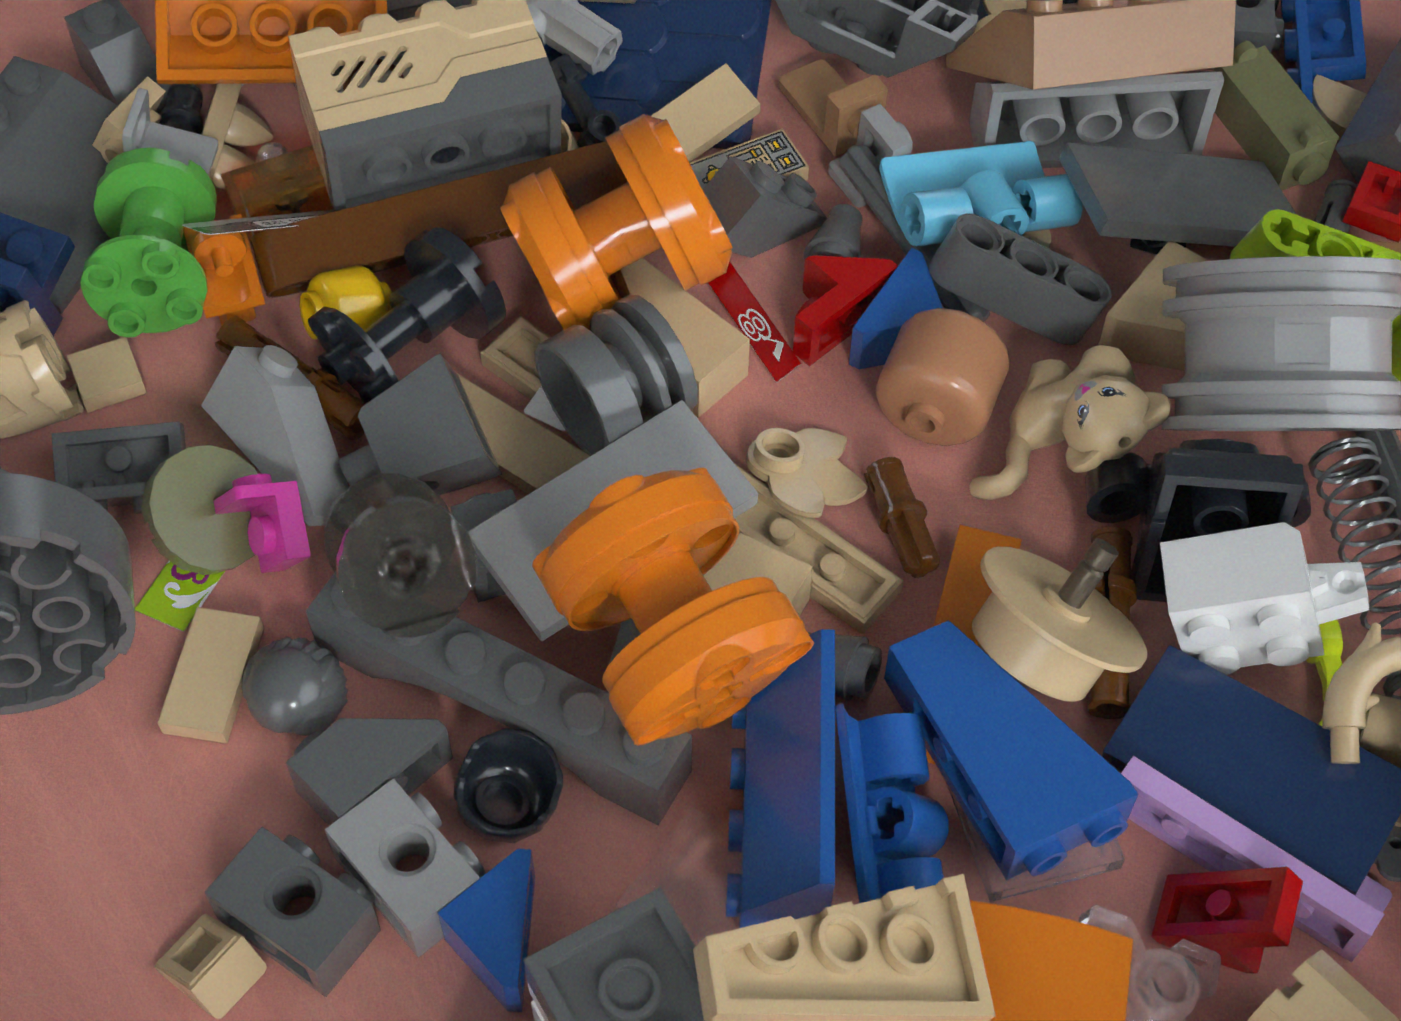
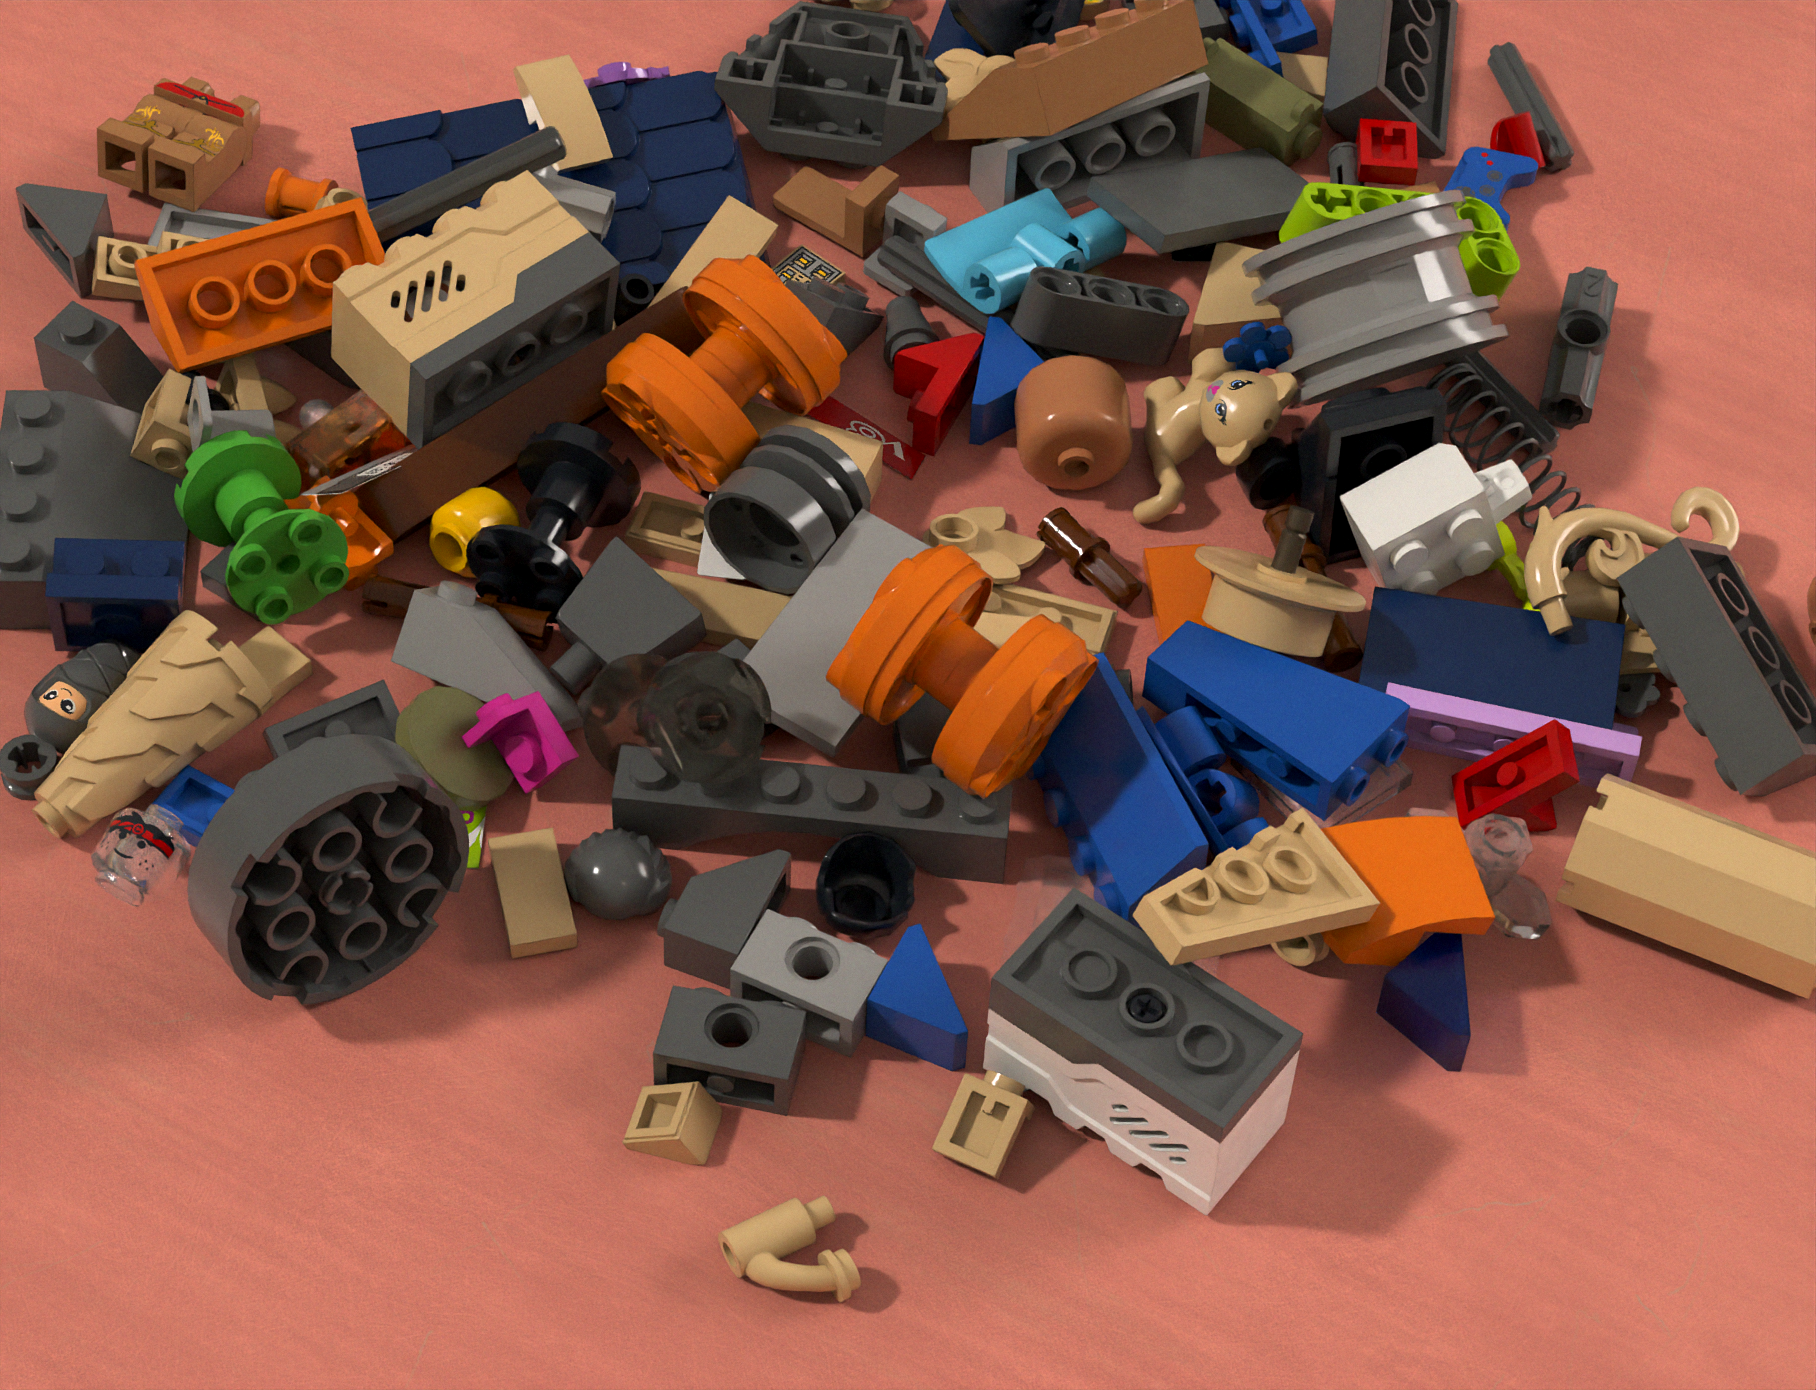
camera: 25 degrees left, 5 degrees down
(1149, 361) = (1258, 347): none -> blue plant

